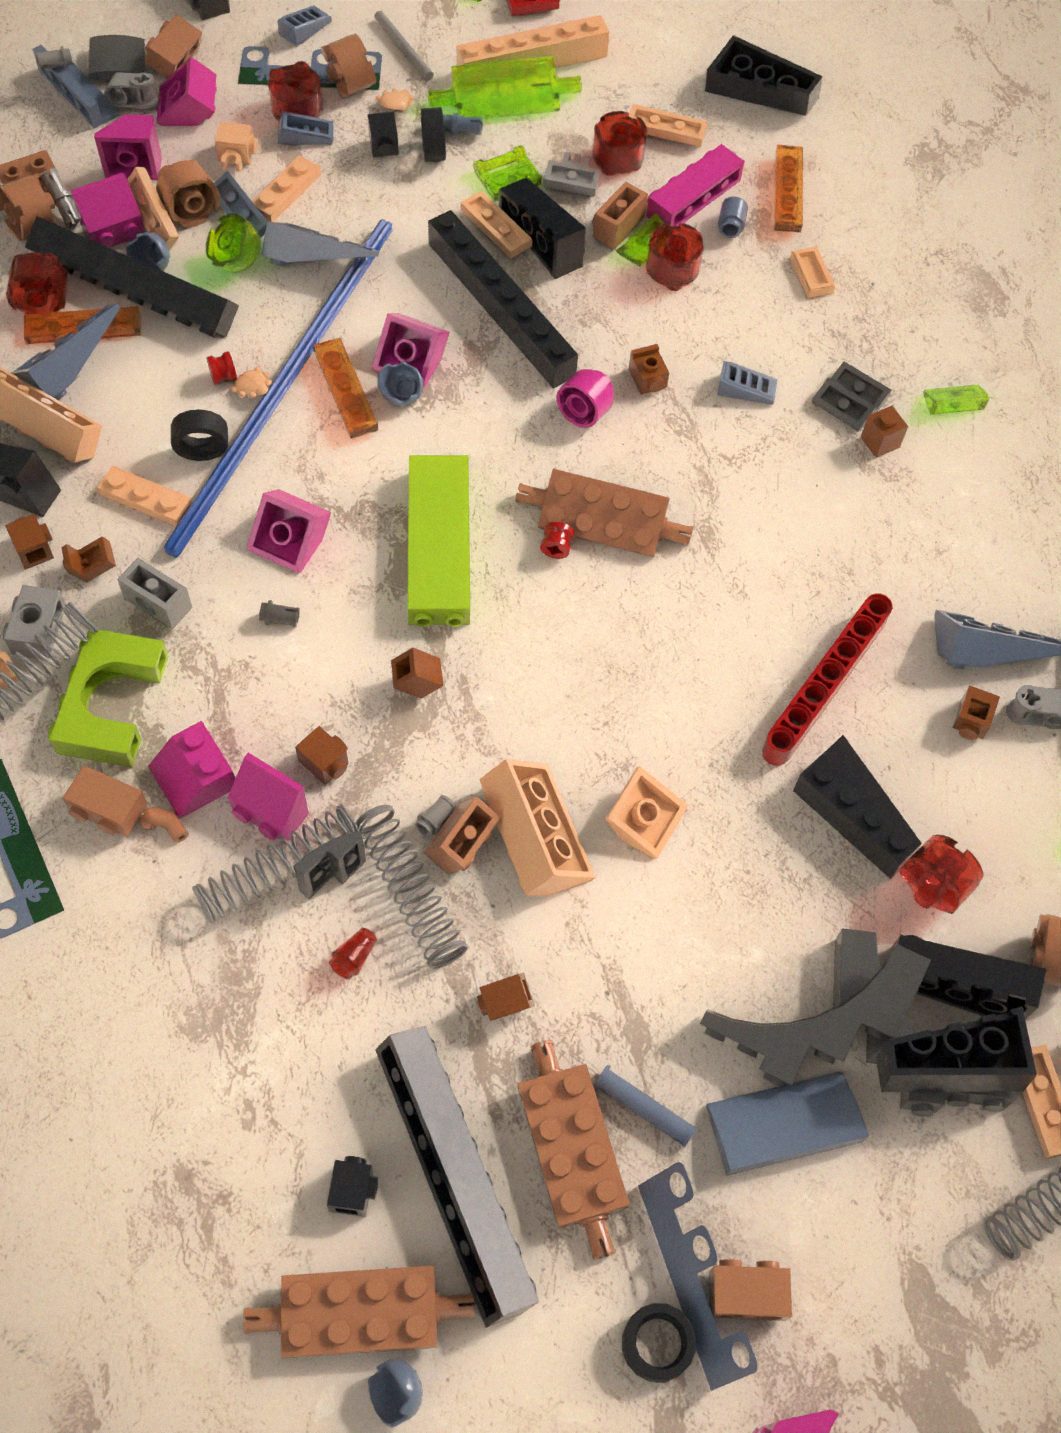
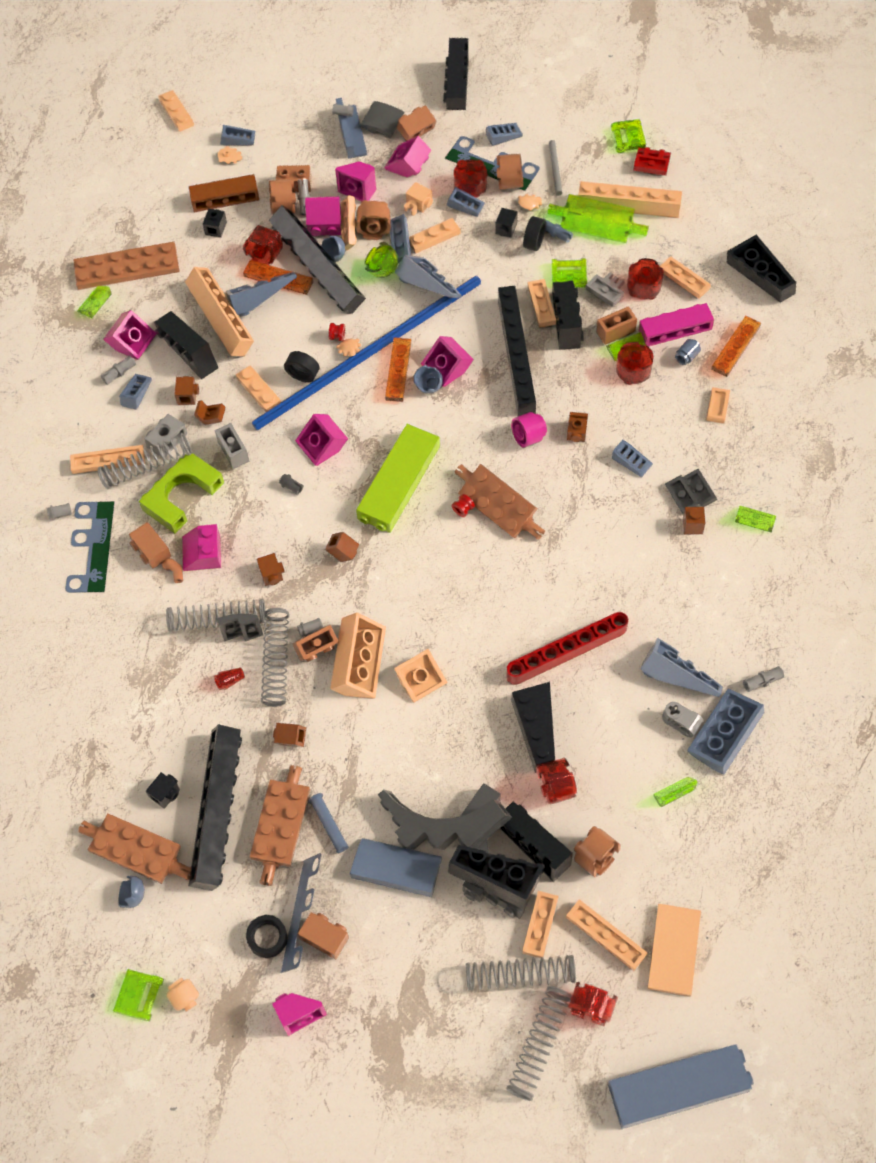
camera: 35 degrees right, 0 degrees up
(135, 90) = (378, 143): light grey piece -> none
(267, 799) = (227, 580): dark pink slope -> none
(975, 713) = (639, 699): dark orange brick -> none

